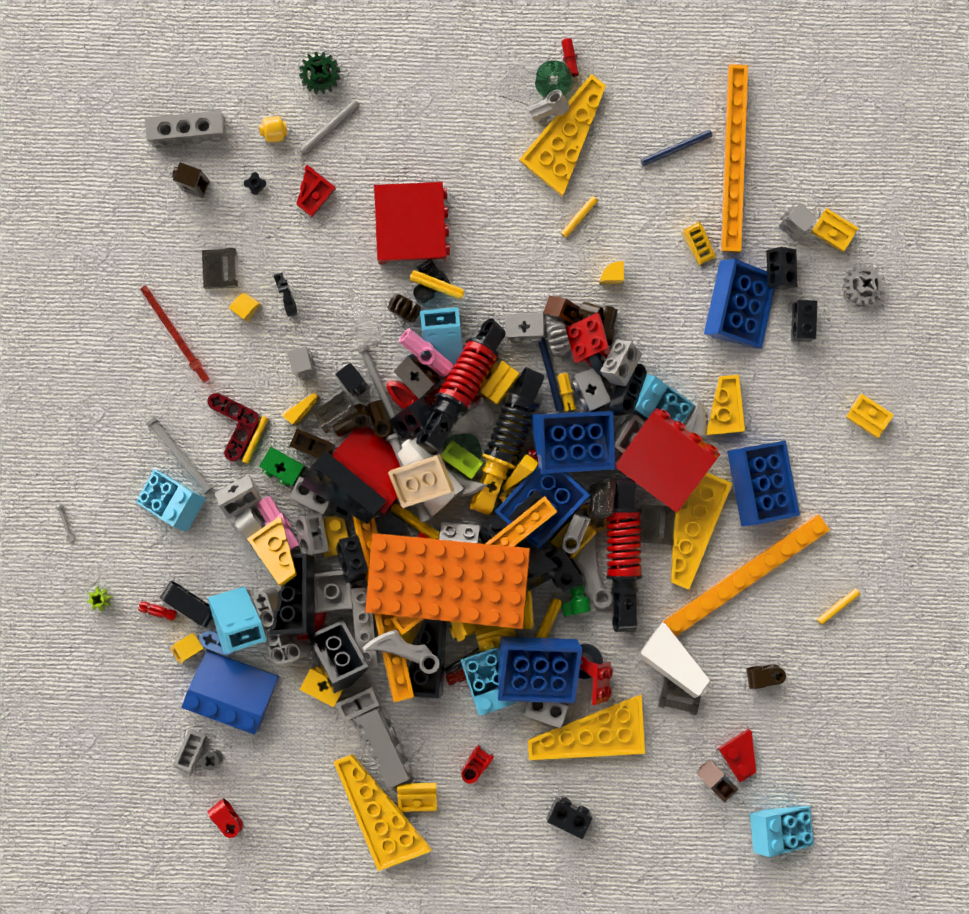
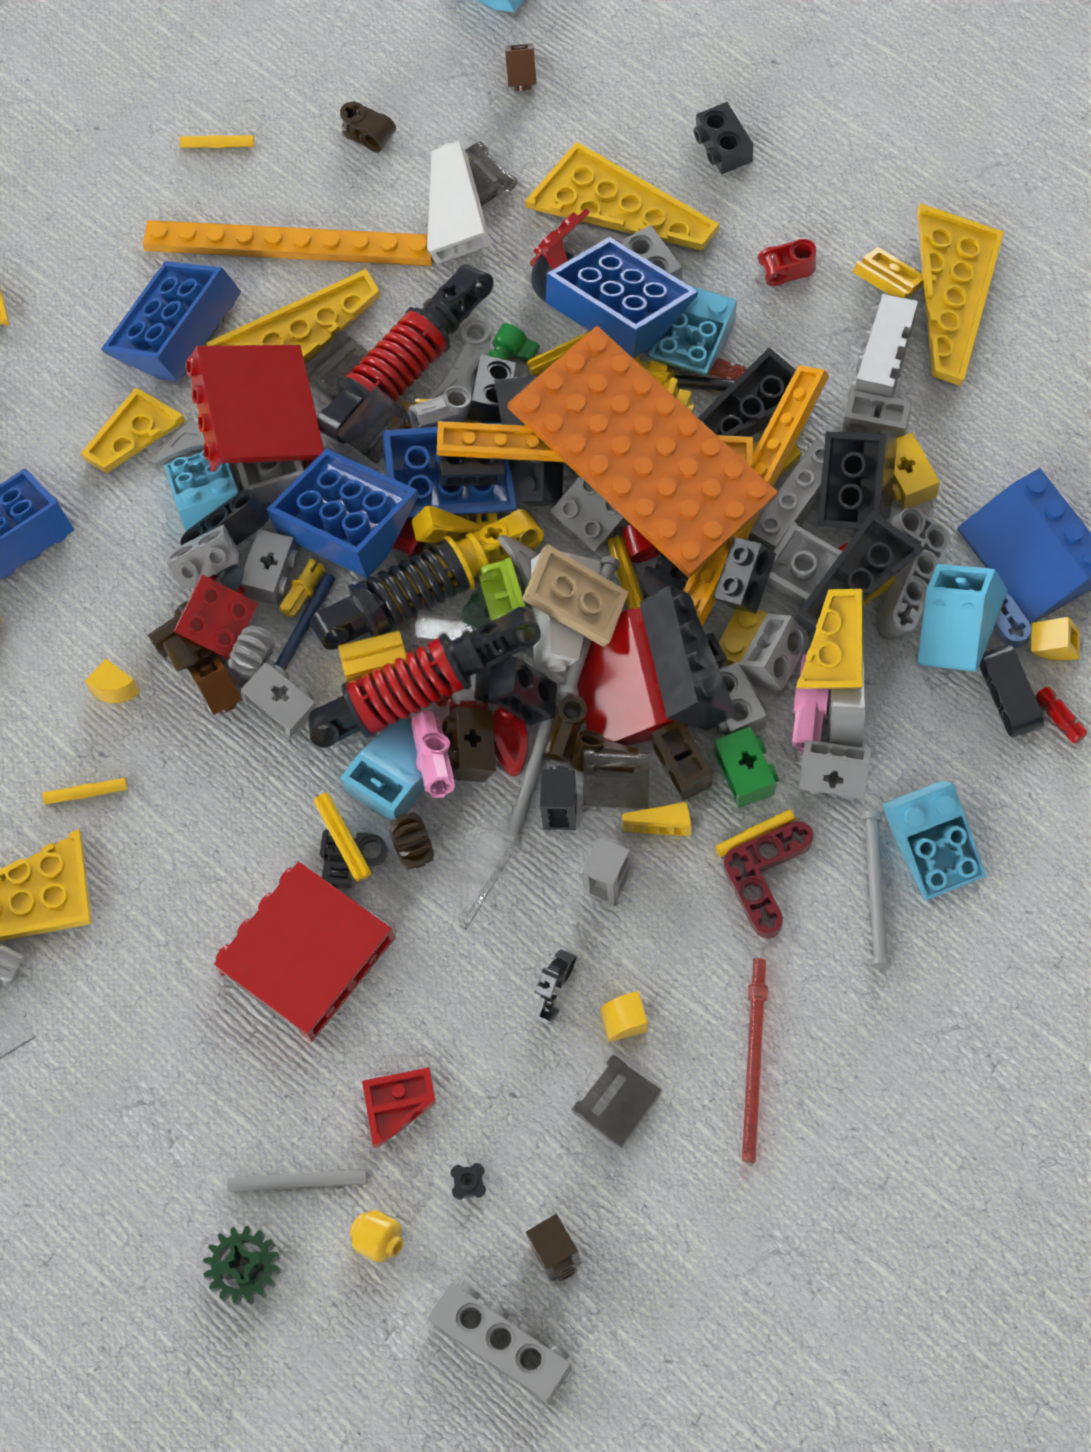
camera: 130 degrees left, 20 degrees down
(393, 643) = (772, 435): light grey piece -> none
(740, 755) = (470, 74): red wing -> none

